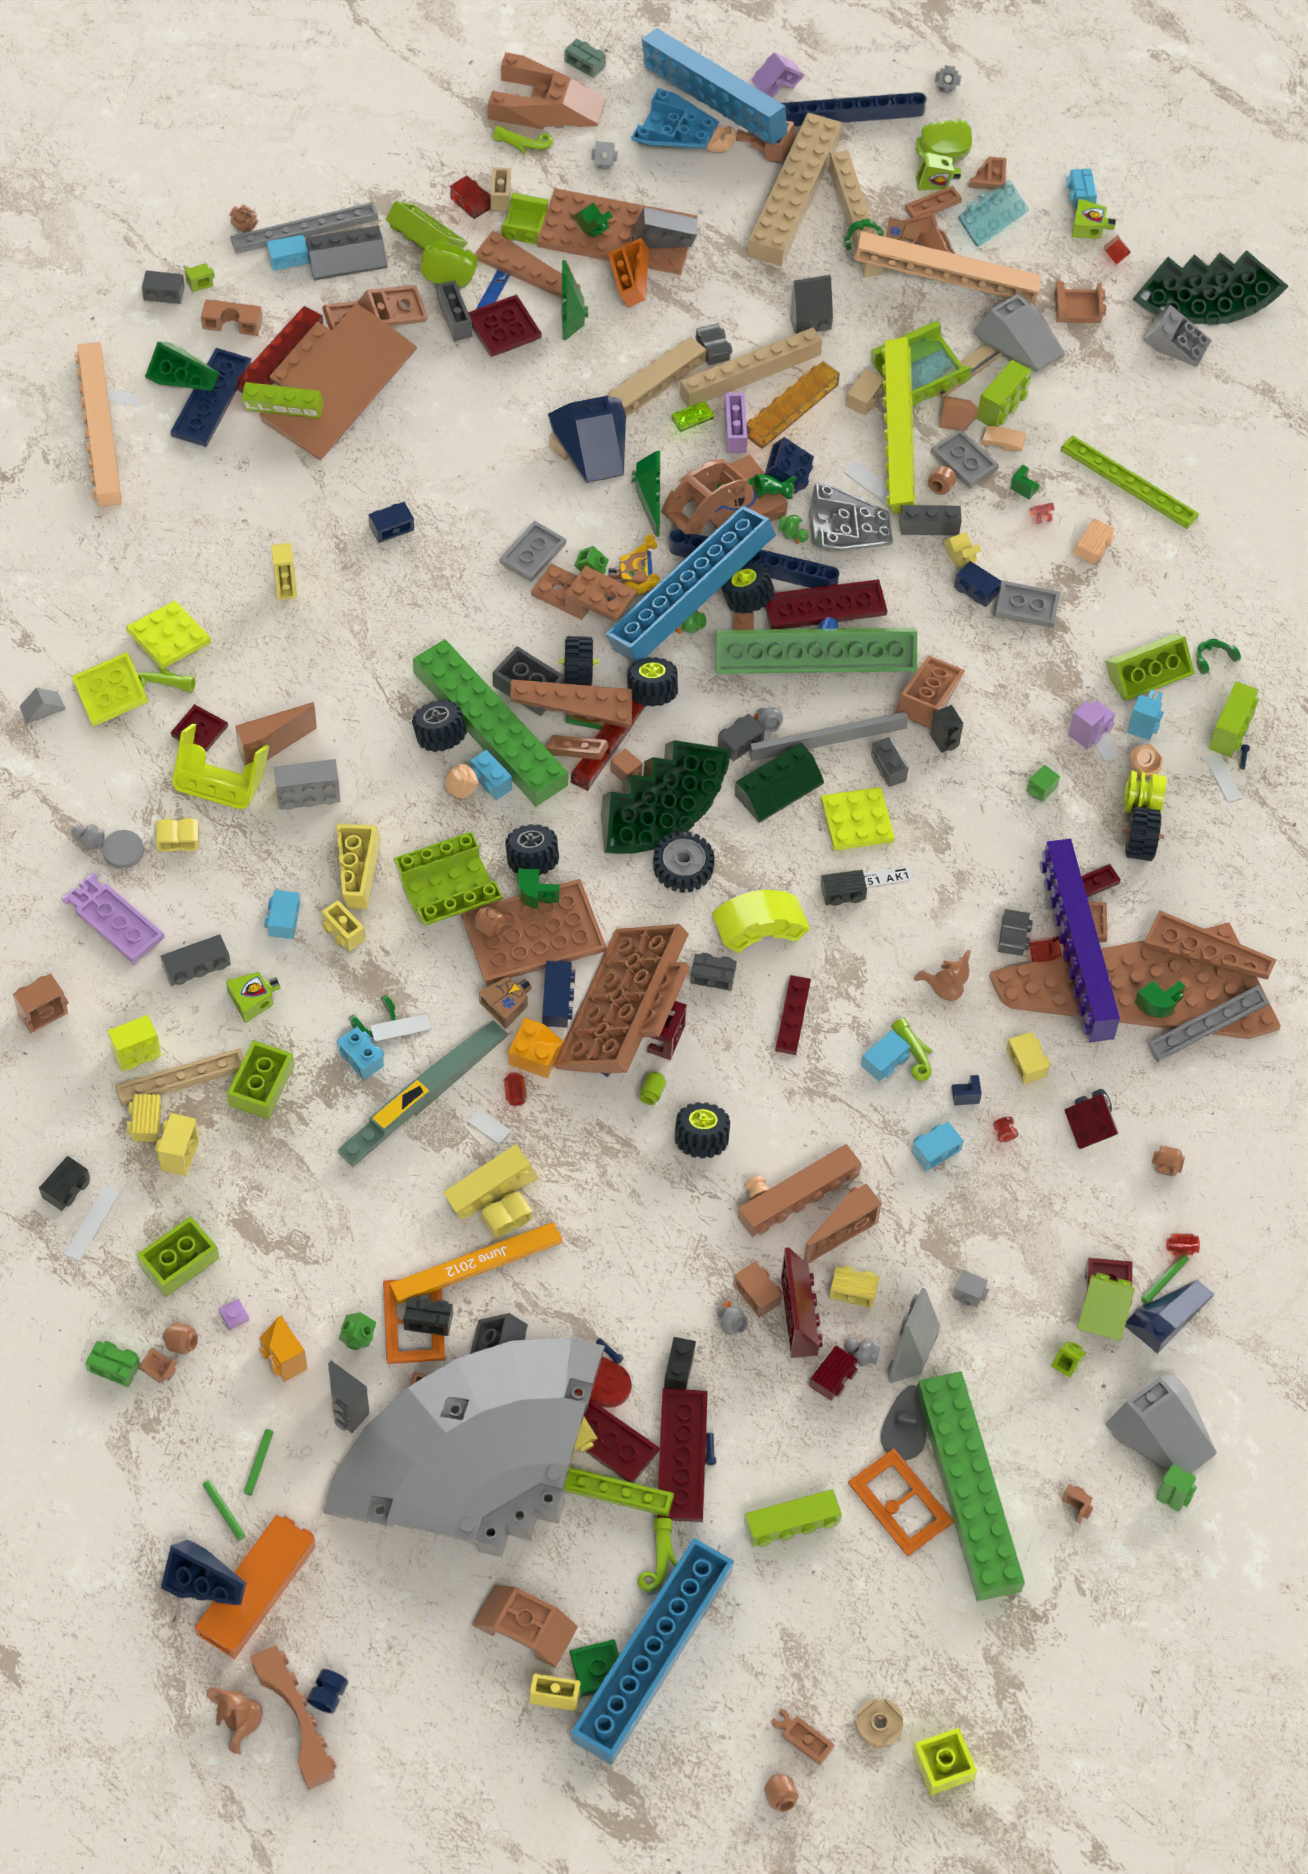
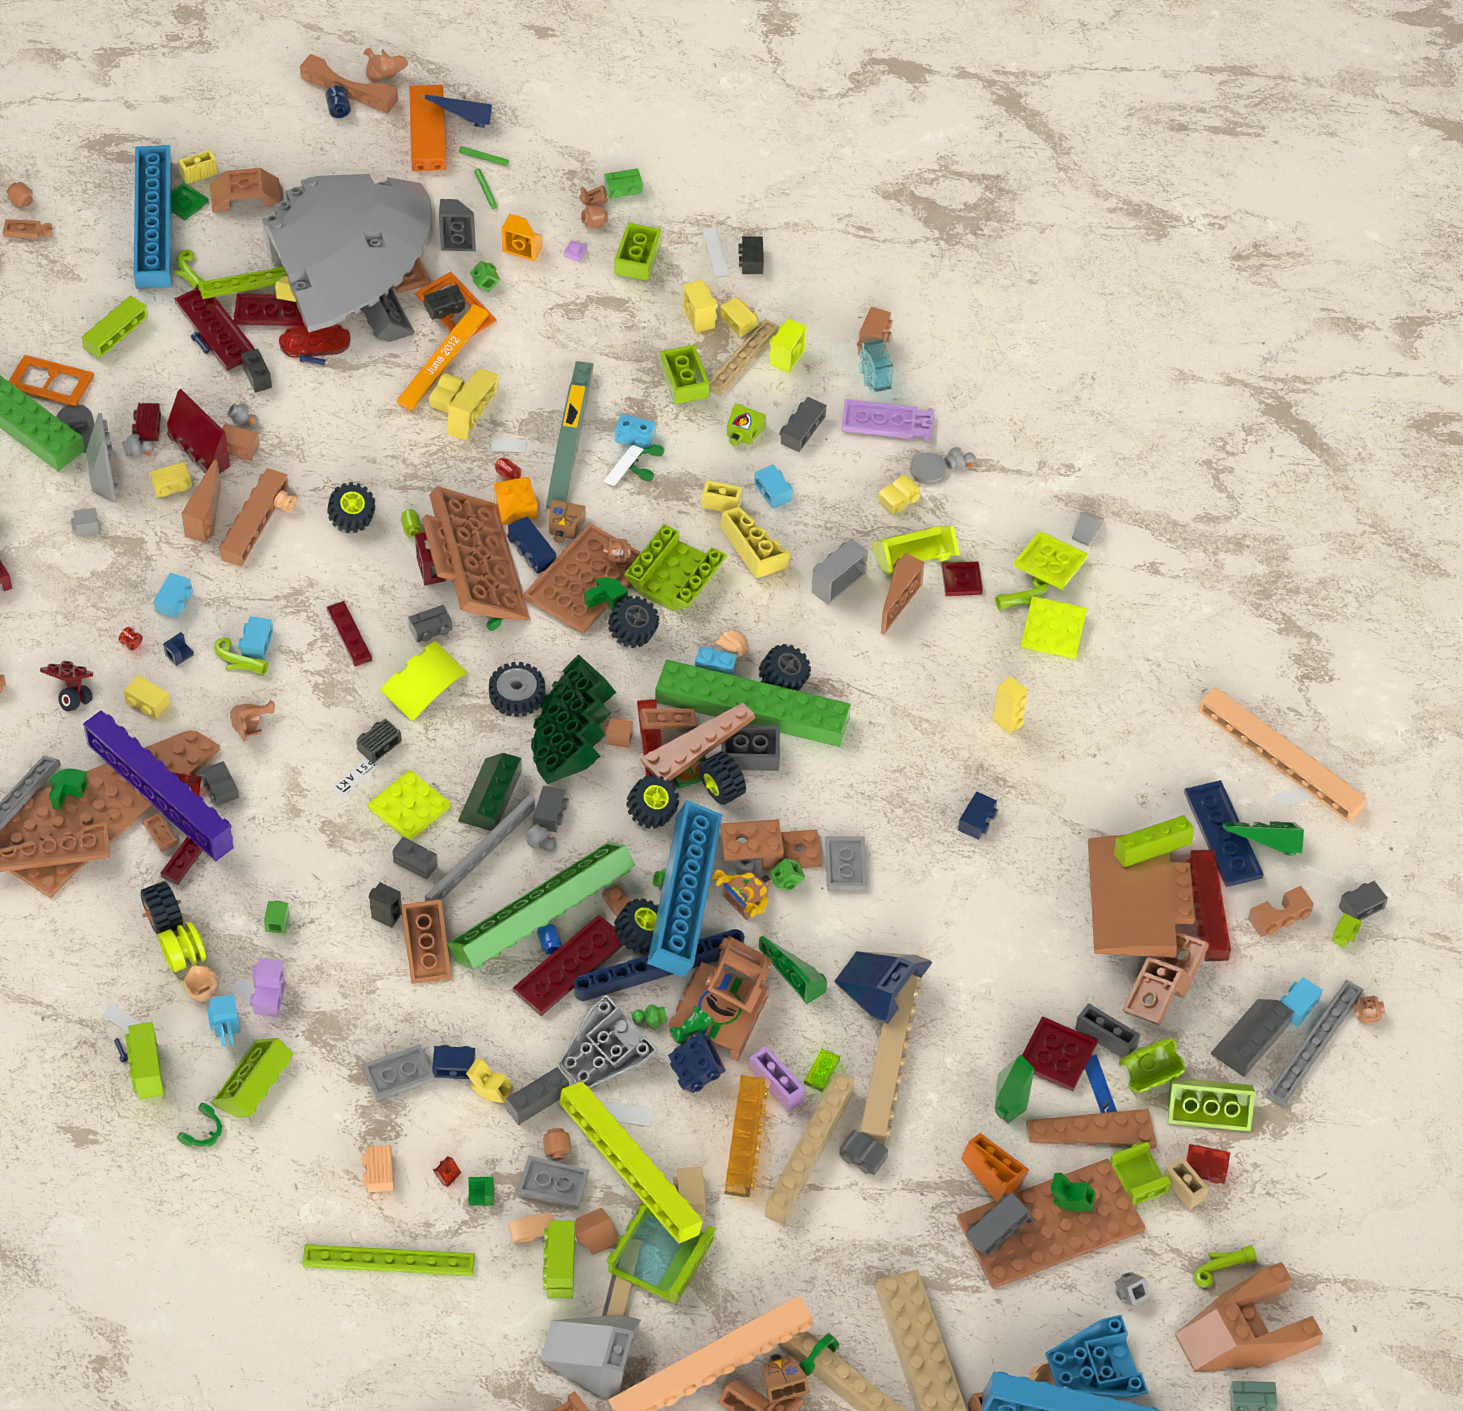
camera: 145 degrees right, 5 degrees down
(74, 966) = (876, 366): none -> clear light blue brick
(812, 304) = (802, 1235): dark grey slope -> none

